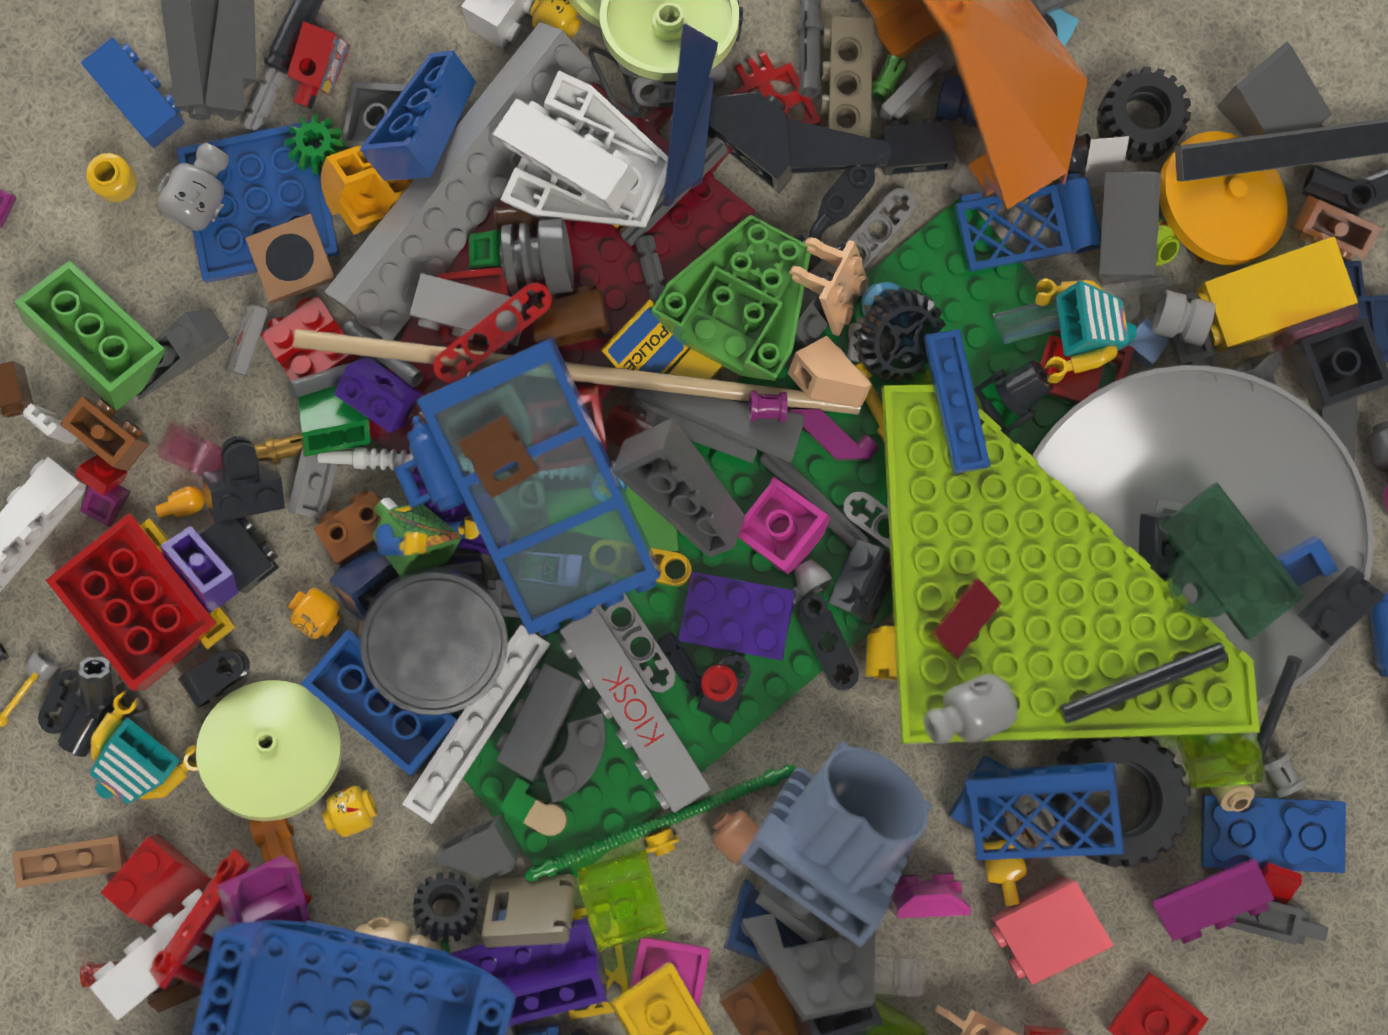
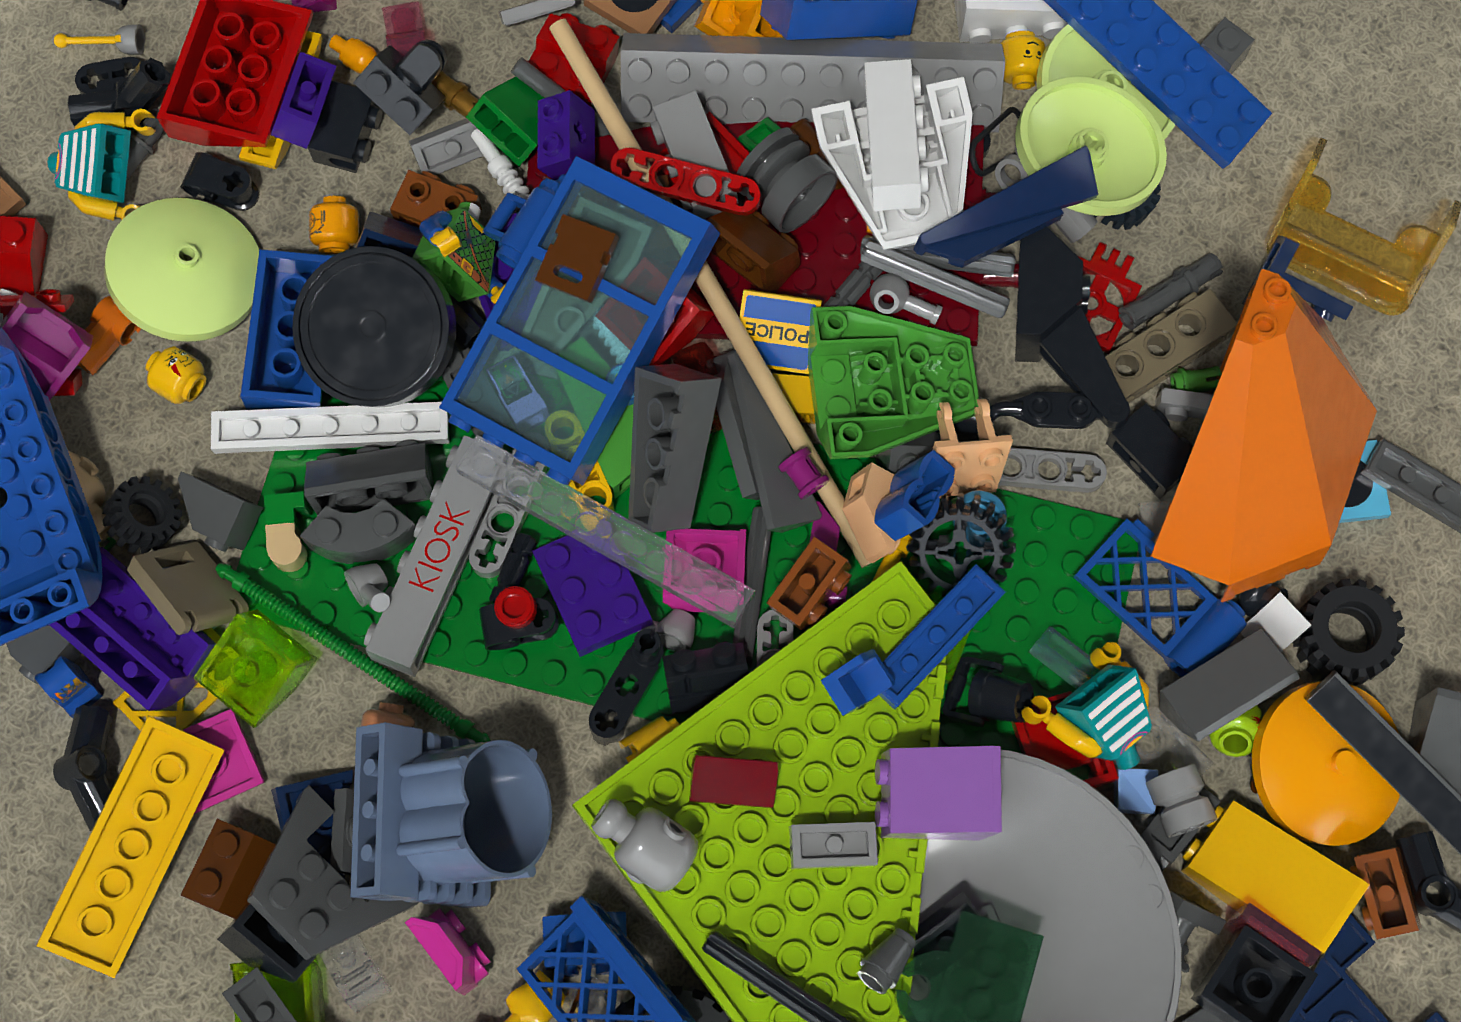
camera: 55 degrees right, 10 degrees down
(400, 367) = (605, 144): dark grey piece -> none
(617, 777) = (367, 586): none -> light grey bar
(661, 841) = (334, 667): yellow plate -> none
(679, 239) = (899, 290): none -> light grey bar
(691, 206) = (935, 279): none -> axle
(710, 580) = (606, 531): none -> clear plate
(847, 341) = (914, 495): none -> blue brick
(854, 462) = (810, 584): none -> dark orange brick
(955, 481) = (858, 682): none -> blue panel
(1057, 581) = (833, 845): none -> light grey plate
(1075, 480) = (939, 793): none -> medium lavender slope
(1161, 602) = (887, 961): none -> dark grey cone

